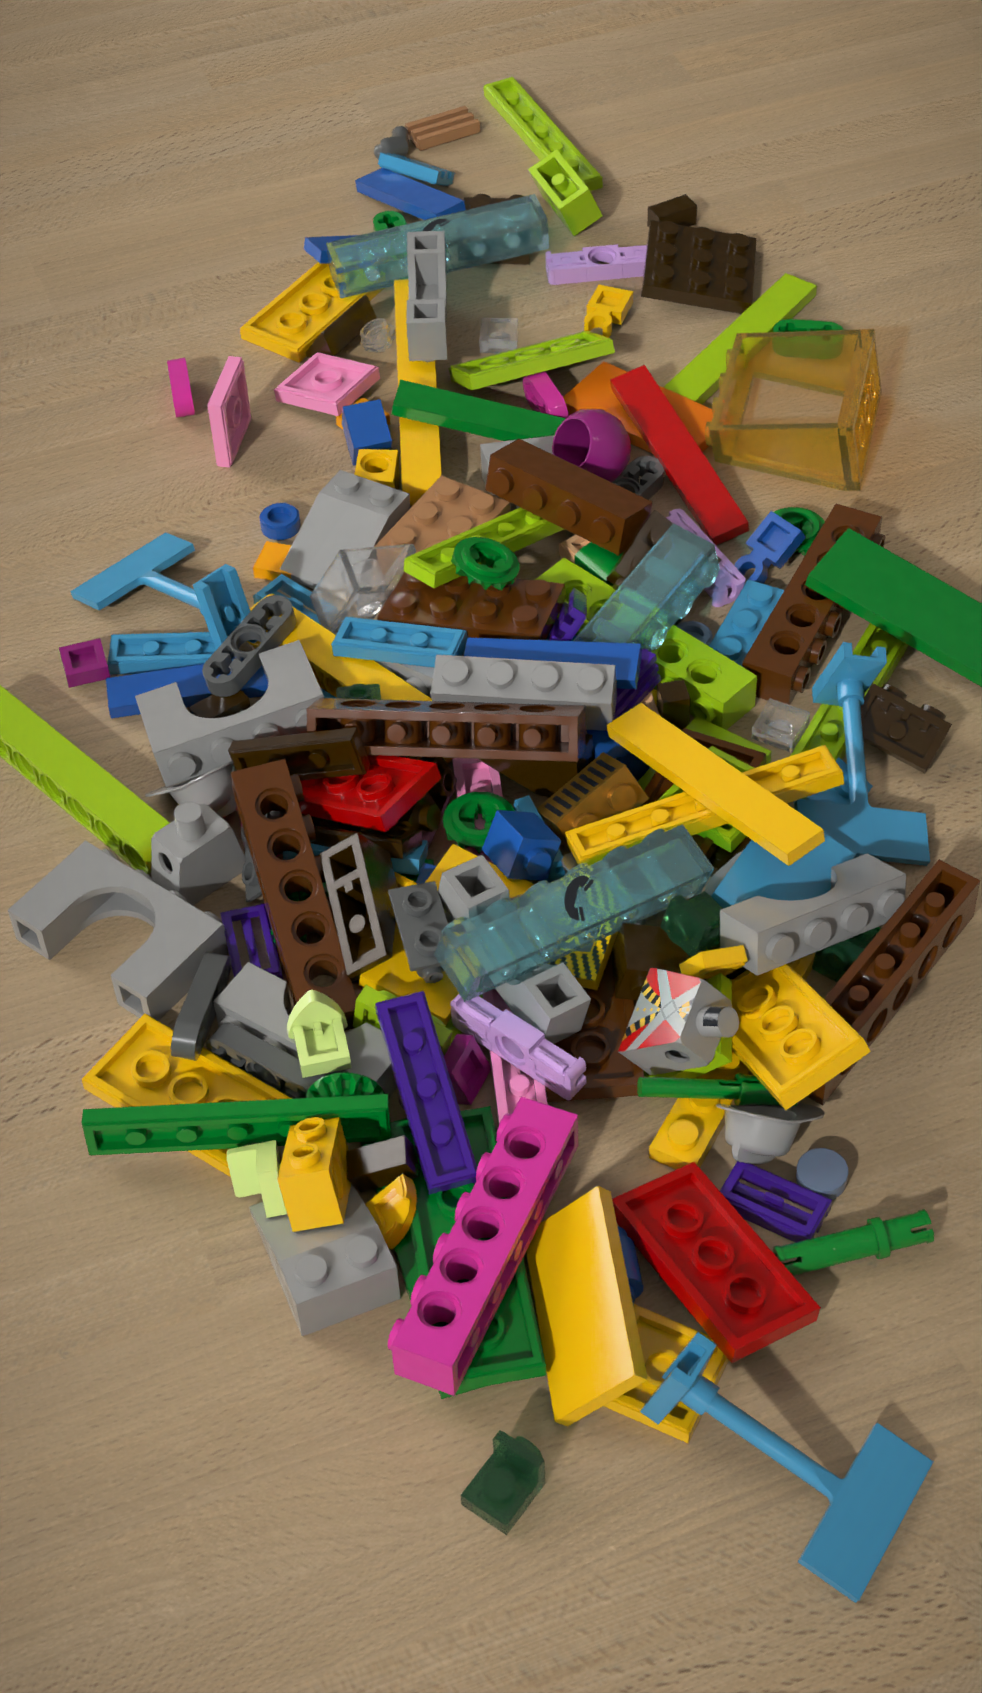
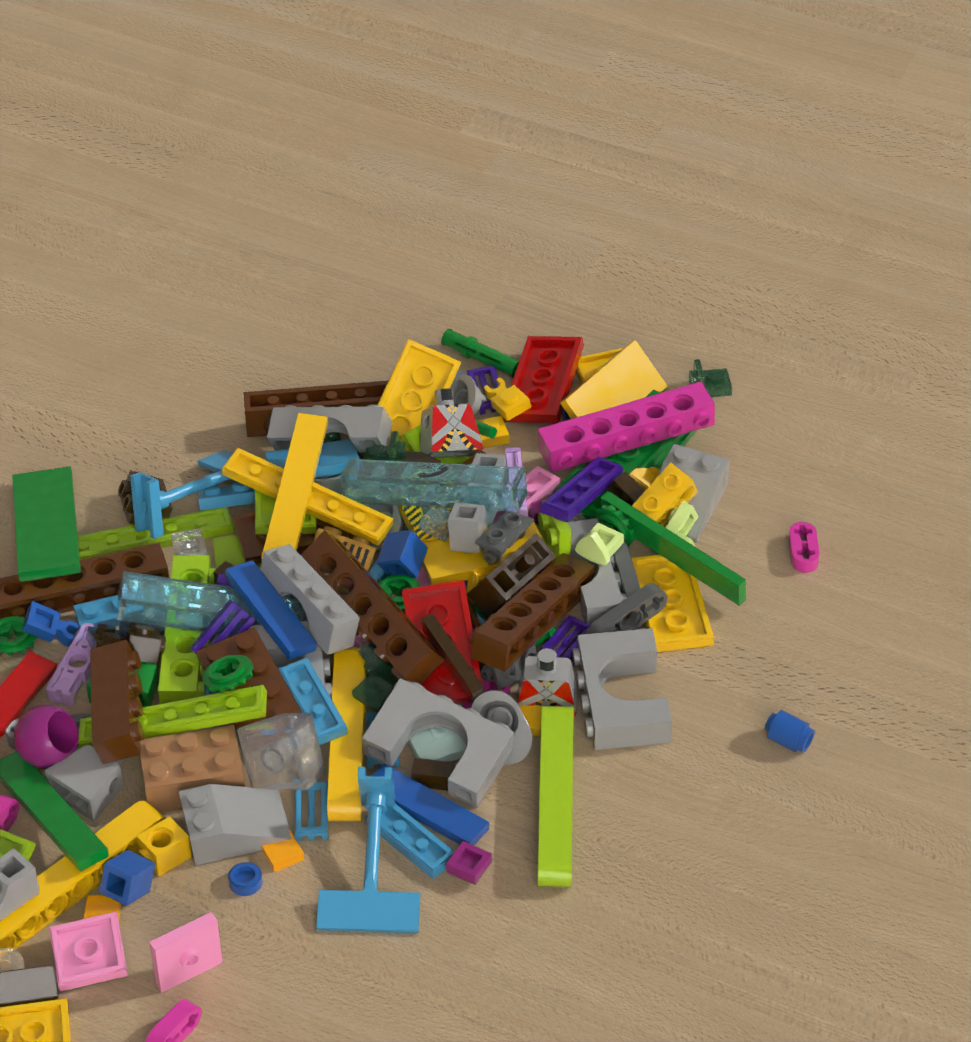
camera: 135 degrees left, 5 degrees down
(102, 1299) = (800, 547): none -> dark pink beam
(251, 628) = (407, 761): dark grey beam -> none
(699, 1174) = (508, 401): none -> yellow plate
(713, 962) = (407, 431): yellow tile -> none
(862, 1506) = (617, 320): dark azure piece -> none

